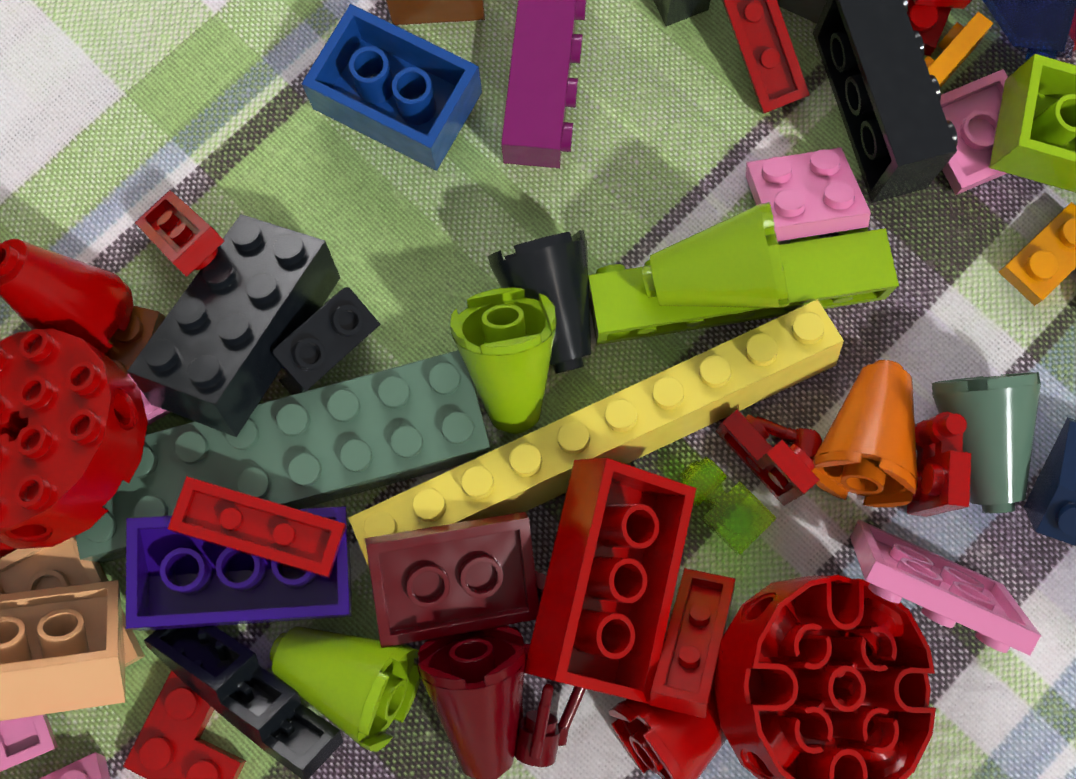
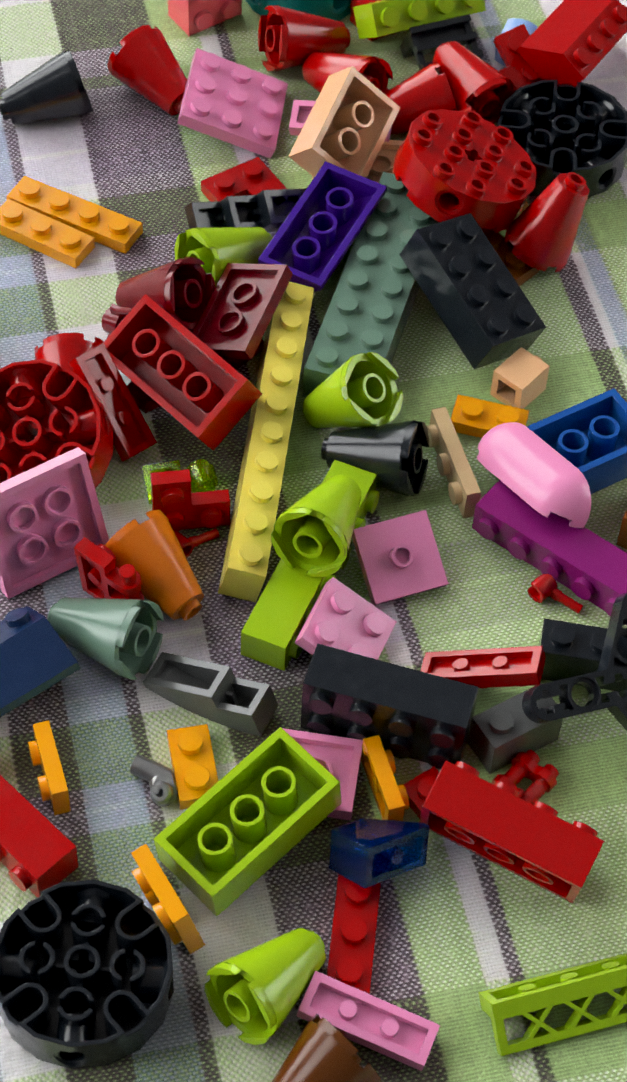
camera: 115 degrees right, 25 degrees down
(180, 233) = (553, 293): red plate -> none
(257, 527) = (335, 232): red plate -> none
(323, 340) = (431, 326): black bracket -> none
(326, 215) = (519, 379): none -> light nougat brick
(400, 227) = (478, 416): none -> light orange plate
(482, 109) = (536, 472): none -> bright pink brick
(497, 222) = (453, 462): none -> tan plate
(600, 48) = (547, 586): none -> red hand
(671, 195) = (399, 557): none -> bright pink plate
(968, 287) = (213, 692): none -> dark grey slope

